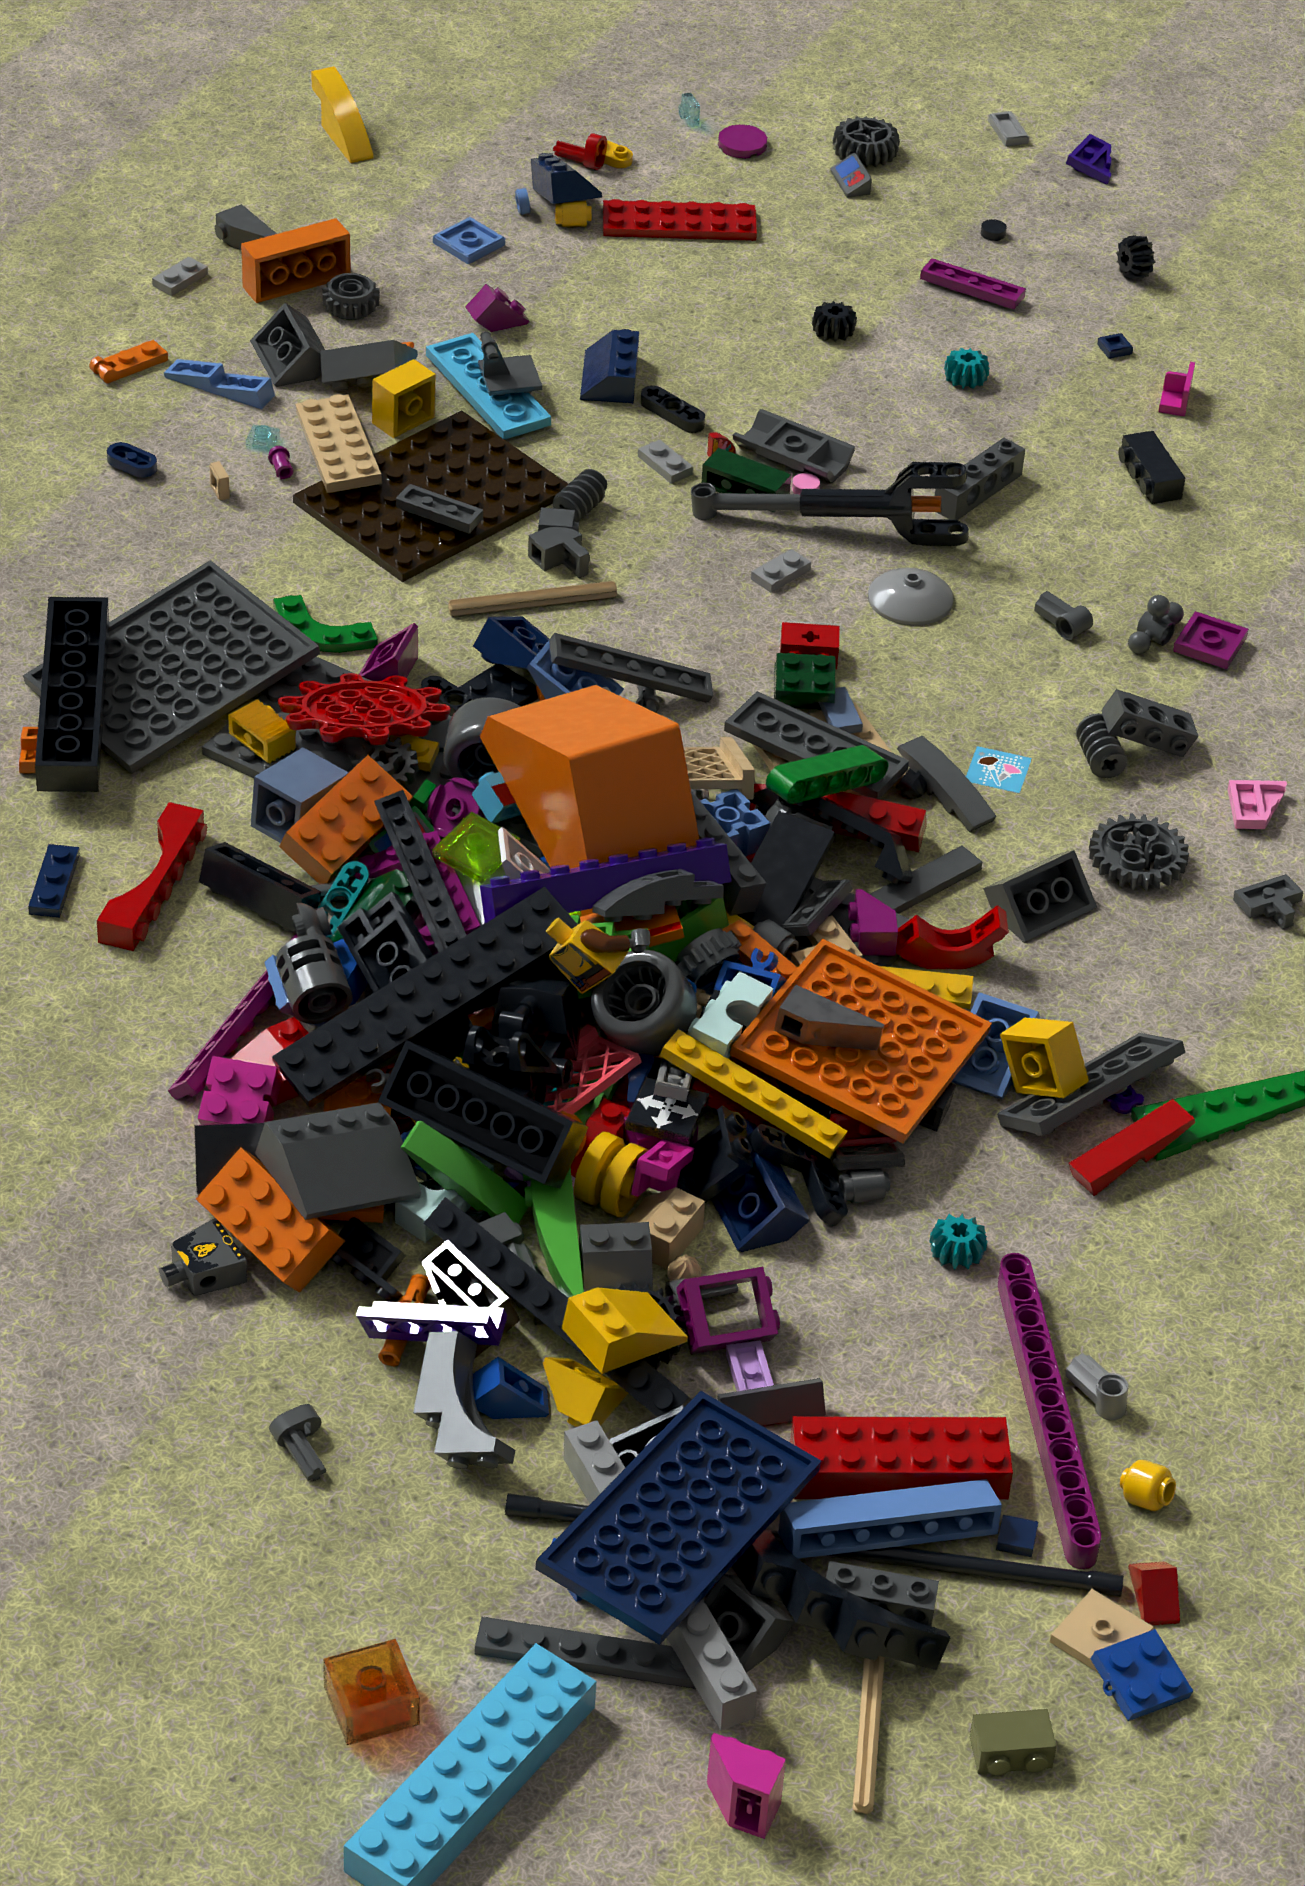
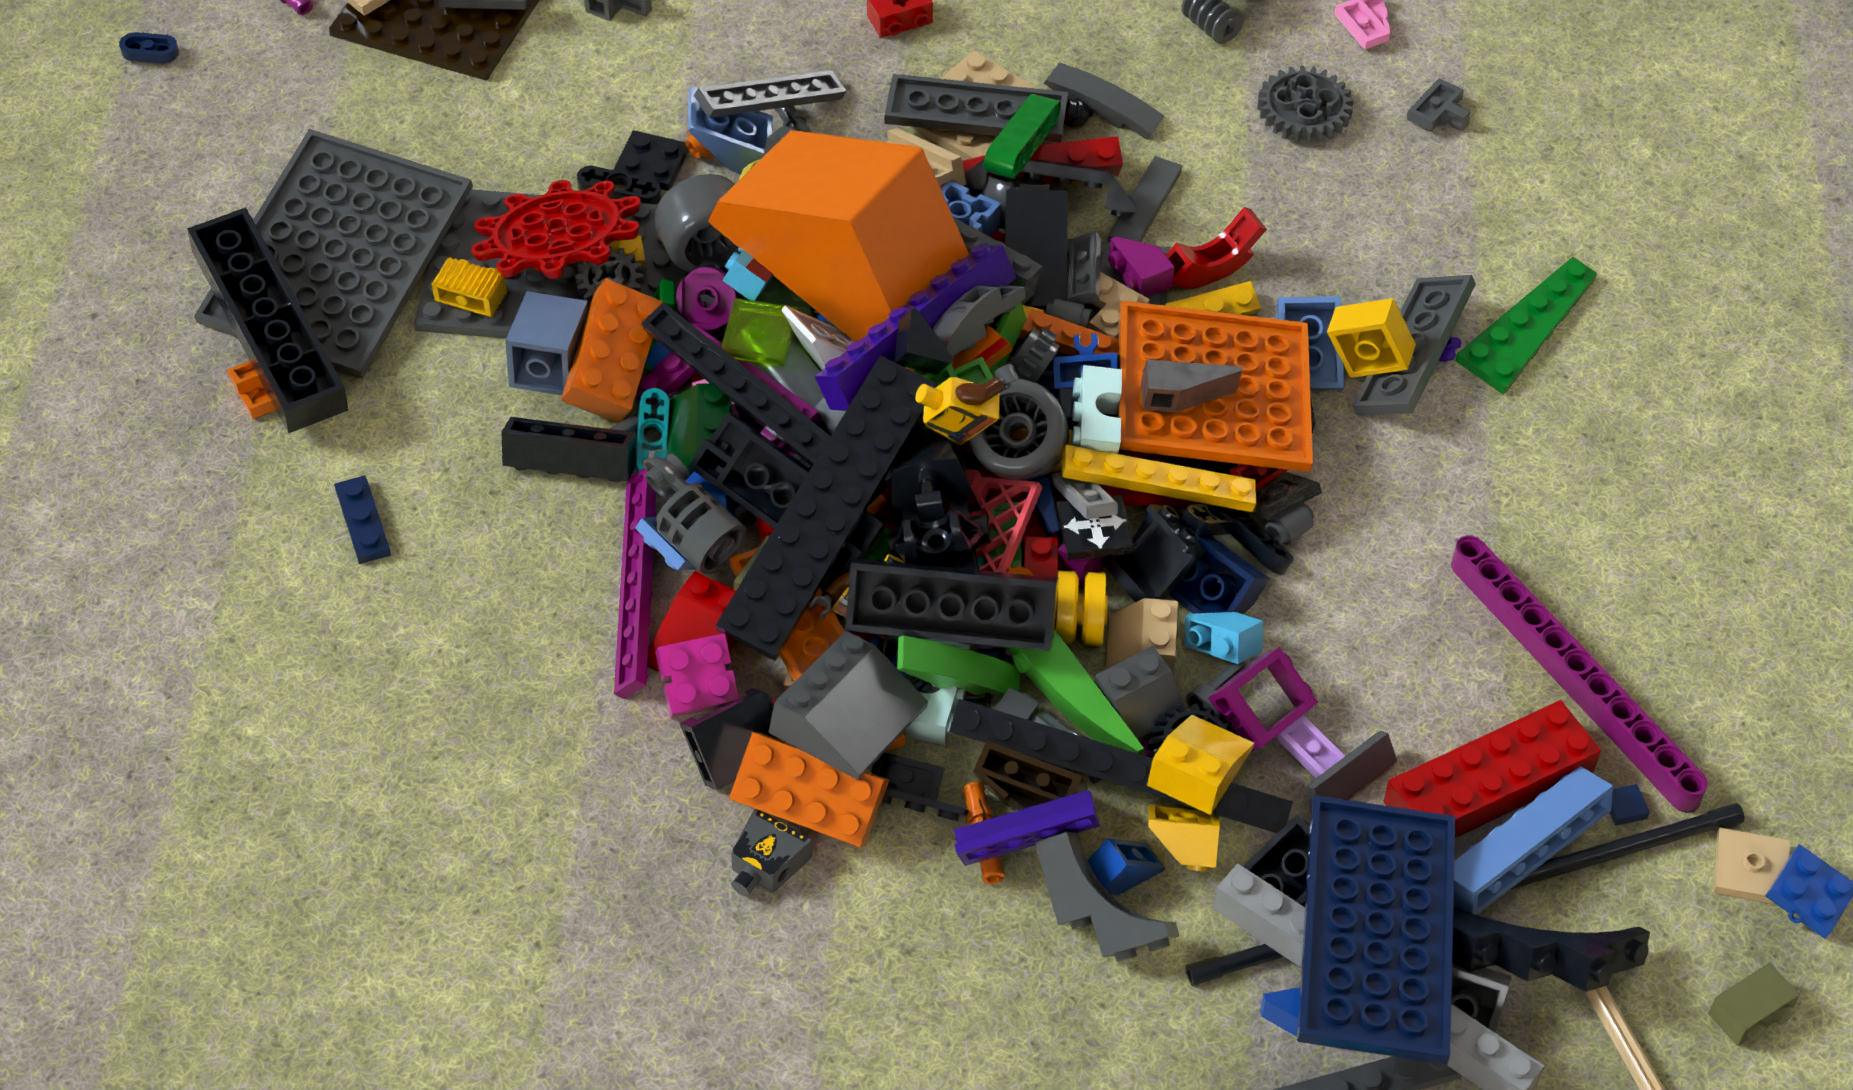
camera: 25 degrees left, 10 degrees up
(129, 915) = (460, 527): red arch -> none
(219, 481) = (250, 39): tan tile -> none
(291, 1431) = (956, 993): dark grey piece -> none
(329, 638) = (463, 162): green plate -> none
(393, 656) = (531, 163): magenta slope -> none
(510, 641) = (648, 108): dark blue slope -> none
(532, 598) = (619, 54): tan axle -> none
(585, 894) = (919, 346): none -> black slope
(661, 1167) = (1122, 582): dark pink panel -> none
(683, 1267) = (1190, 674): tan plate -> none
(732, 1246) = (1224, 635): none -> medium azure slope
(804, 680) = (923, 46): dark green bracket -> none
(842, 712) = (971, 64): sand blue tile -> none
(894, 1592) = (1578, 911): dark grey brick -> none
(958, 1241) = (1401, 544): teal gear -> none
(998, 769) = (1133, 68): medium azure sticker -> none
(1042, 895) = (1253, 176): dark grey slope -> none
(1105, 1389) = (1614, 634): light grey piece -> none
(1137, 1141) = (1484, 391): red slope -> none
(1148, 1485) = (1702, 709): yellow head -> none
(1156, 1592) = (1768, 803): red slope -> none

